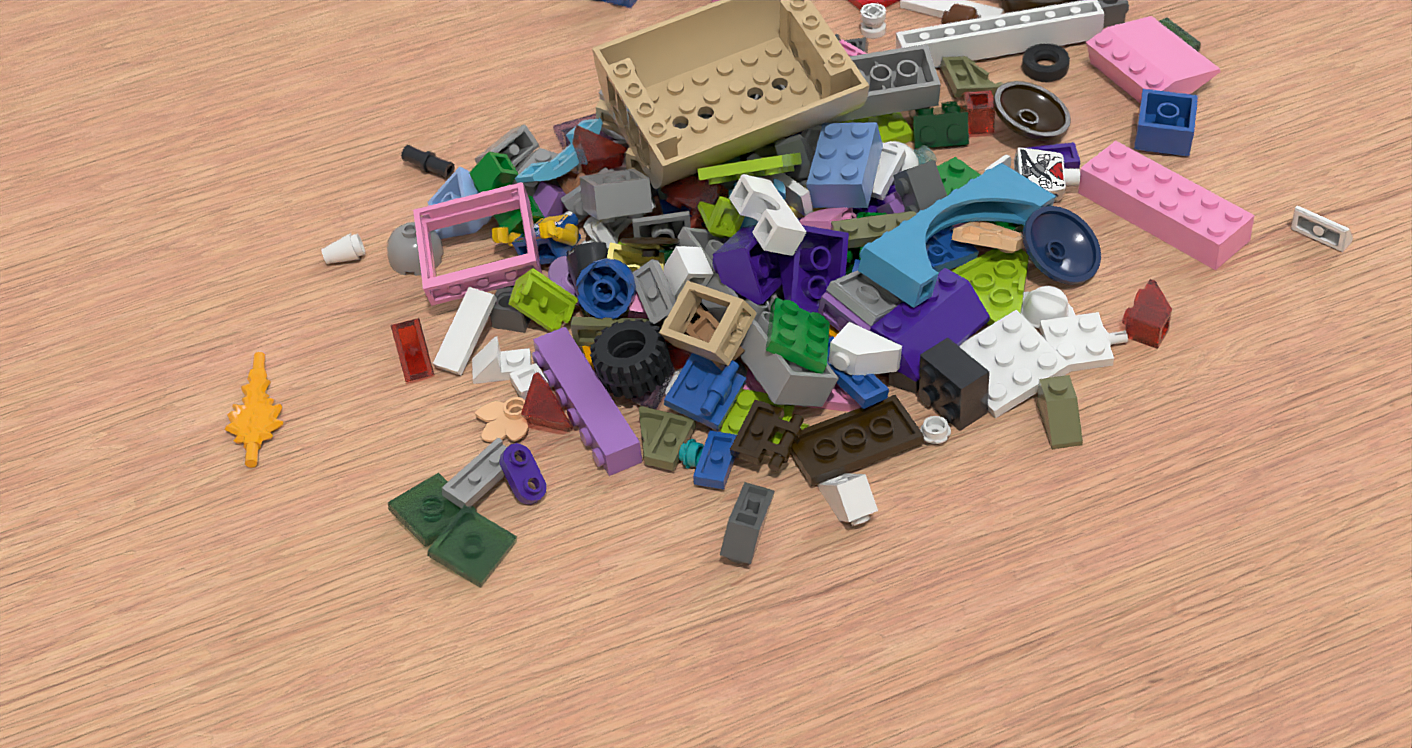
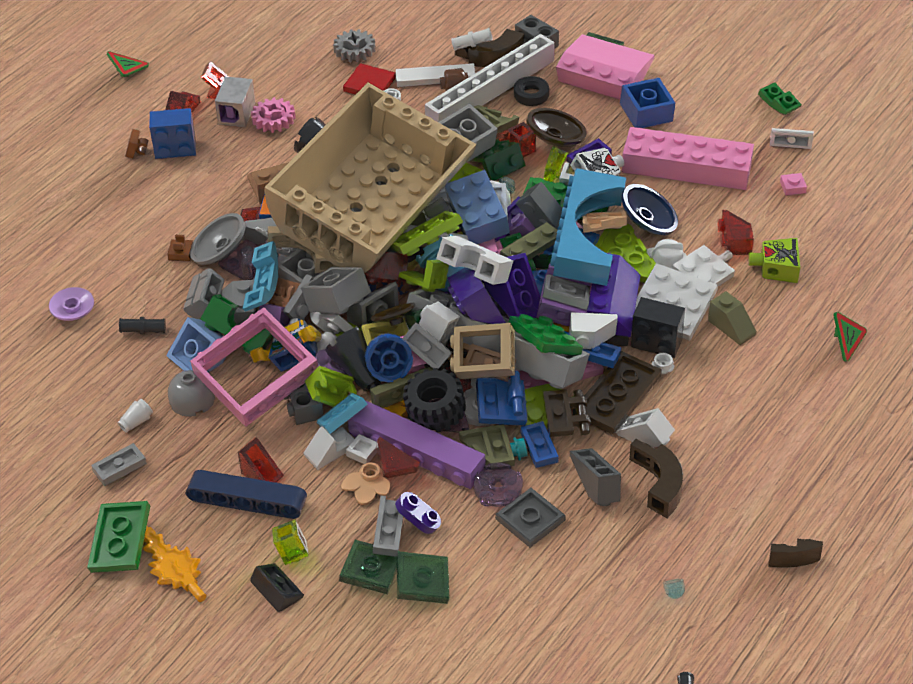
camera: 35 degrees left, 0 degrees up
(224, 364) = (119, 536): none -> green plate
(288, 292) = (118, 464): none -> light grey plate
(330, 485) = (275, 586): none -> black slope
(369, 444) = (290, 542): none -> clear neon green brick
(378, 376) = (246, 494): none -> dark blue beam
(379, 113) = (71, 304): none -> lavender dish
(465, 331) = (288, 434): white tile -> none
(529, 331) = (341, 412): none -> medium azure tile
(530, 98) = (179, 249): none -> dark orange tile
(567, 102) = (218, 239): none -> light grey dish
(596, 151) = (289, 265): clear red slope -> none
(640, 497) = (497, 496): none -> clear purple plate
(643, 536) = (530, 517): none -> dark grey tile
(728, 692) = (674, 588): none -> clear light blue hinge
(822, 571) = (663, 463): none -> dark brown arch
(908, 726) = (804, 553): none -> dark brown slope
(1002, 144) = (554, 163): none -> clear neon green slope
(1178, 366) = (778, 260): none -> lime torso
(1190, 492) = (849, 334): none -> piece
(1279, 285) = (793, 184): none -> bright pink plate
(1347, 176) = (778, 100): none -> green slope

